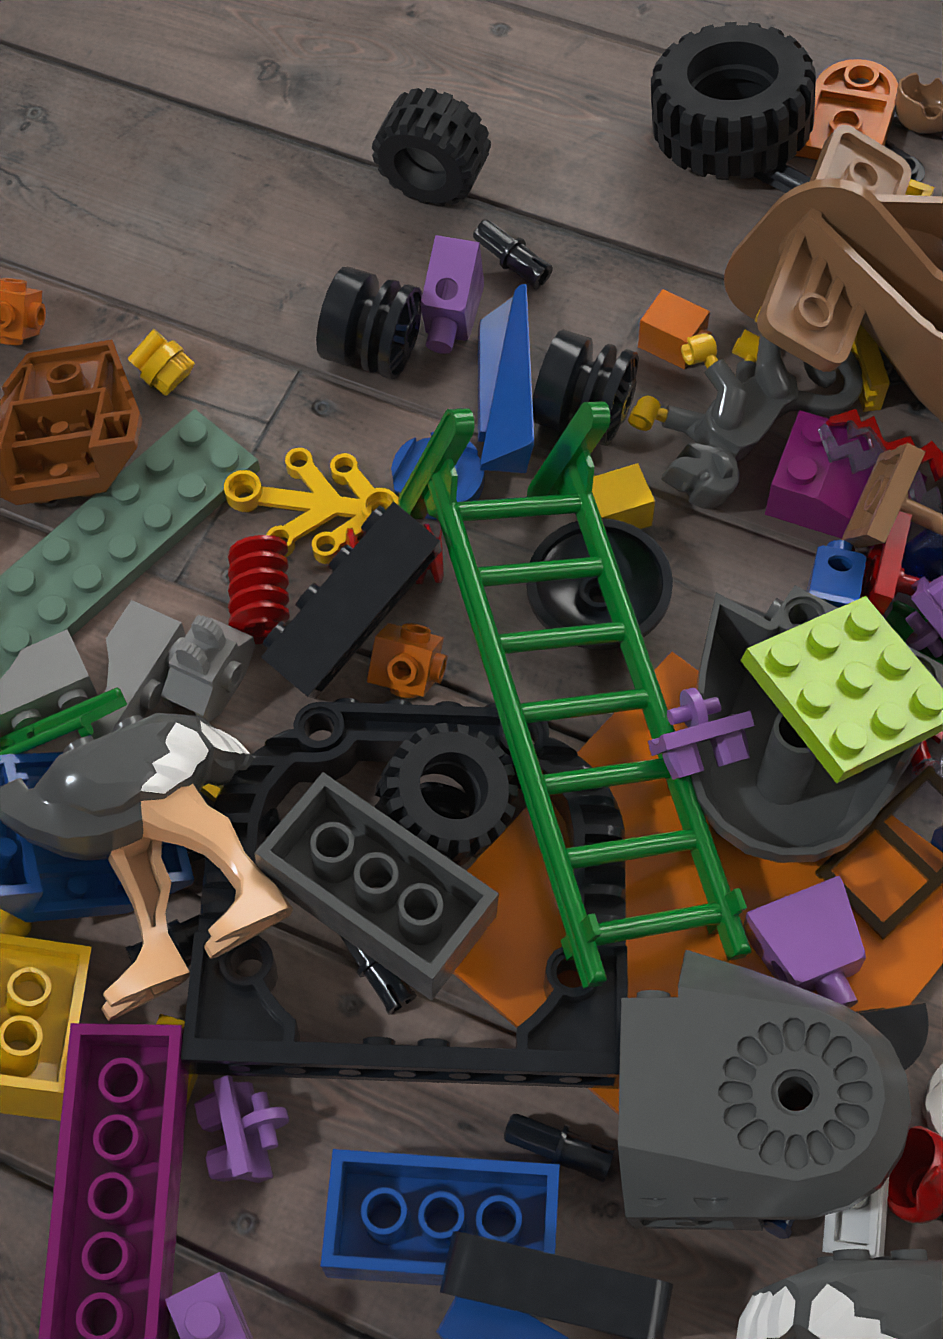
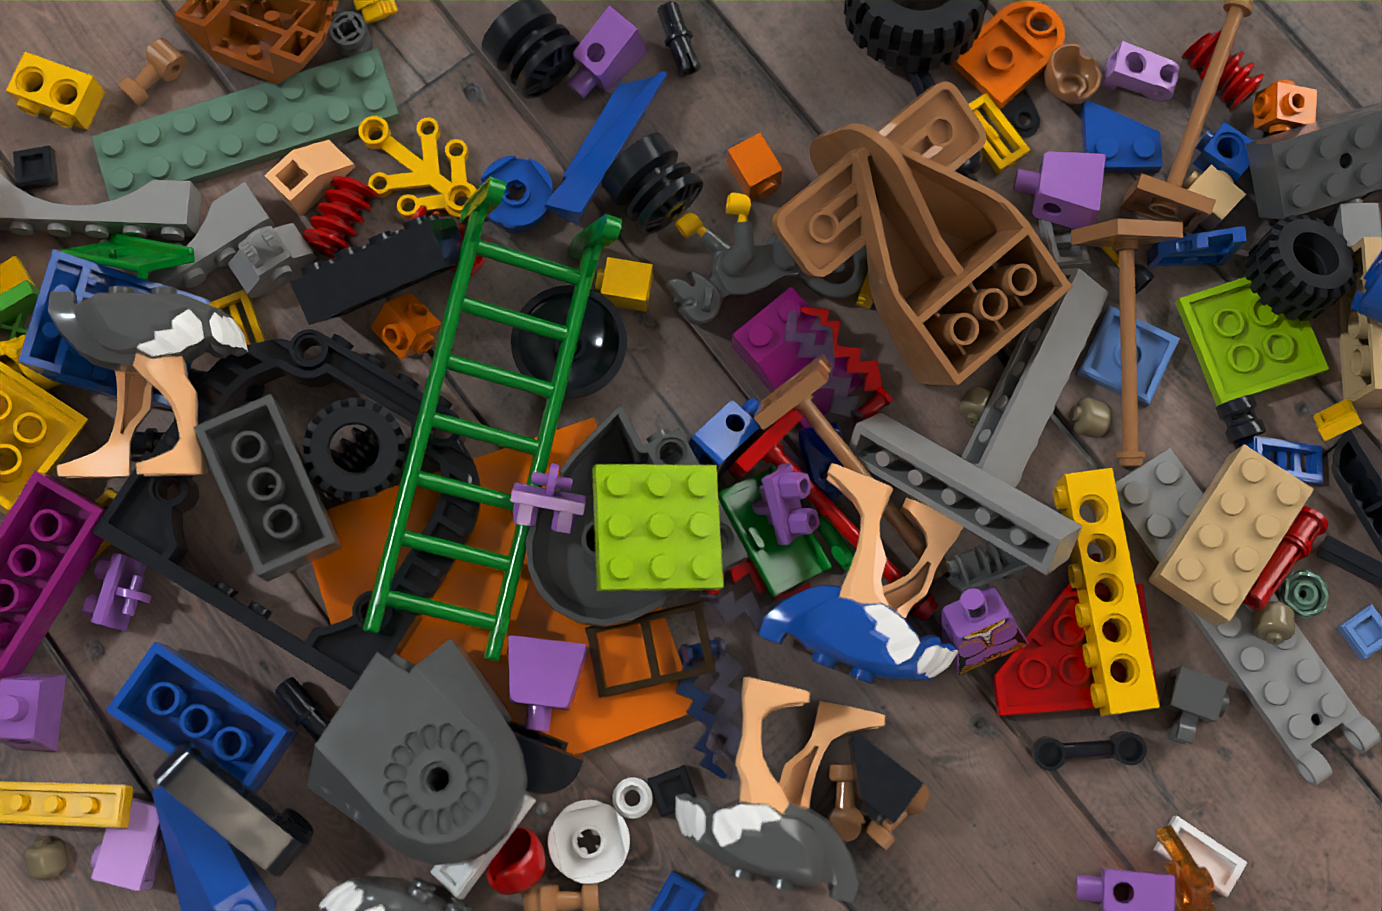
camera: 25 degrees right, 15 degrees up
(158, 406) = (353, 42): none -> dark grey wheel
(195, 567) = (307, 174): none -> light nougat slope

